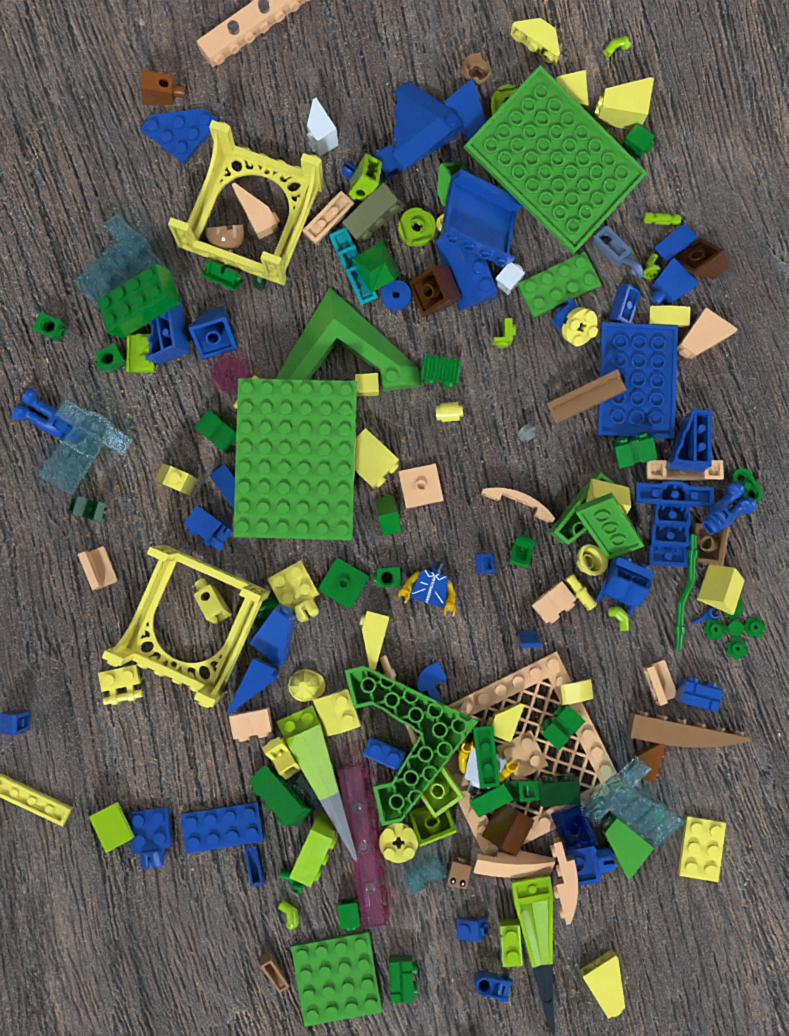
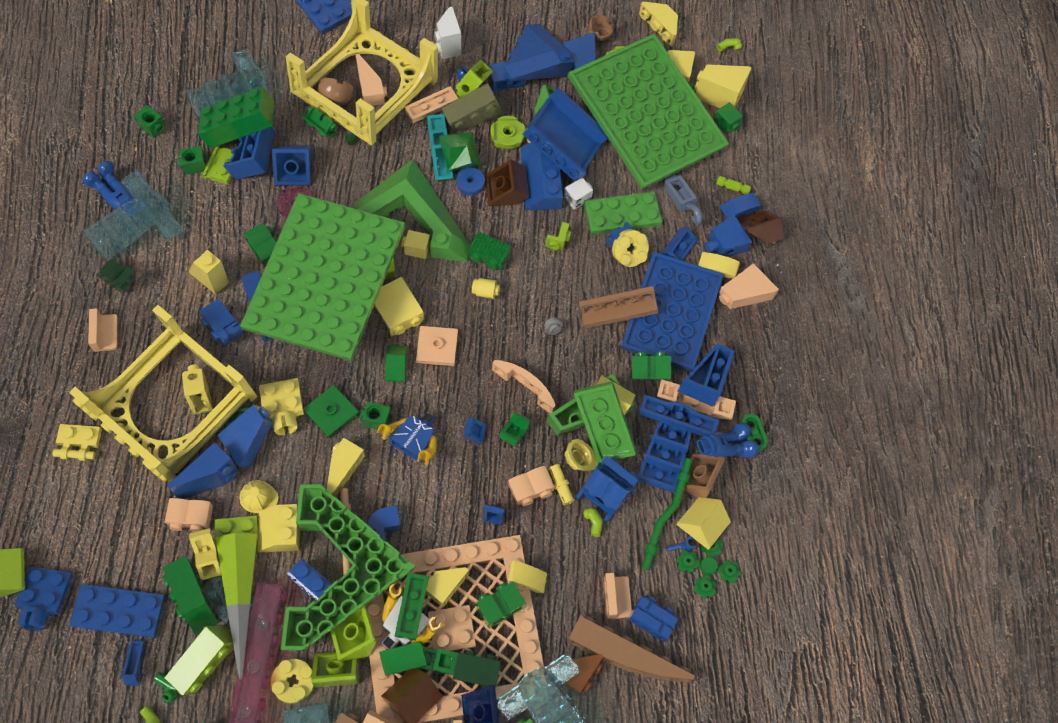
camera: 10 degrees right, 20 degrees down
(651, 270) = (711, 221): lime plate -> none

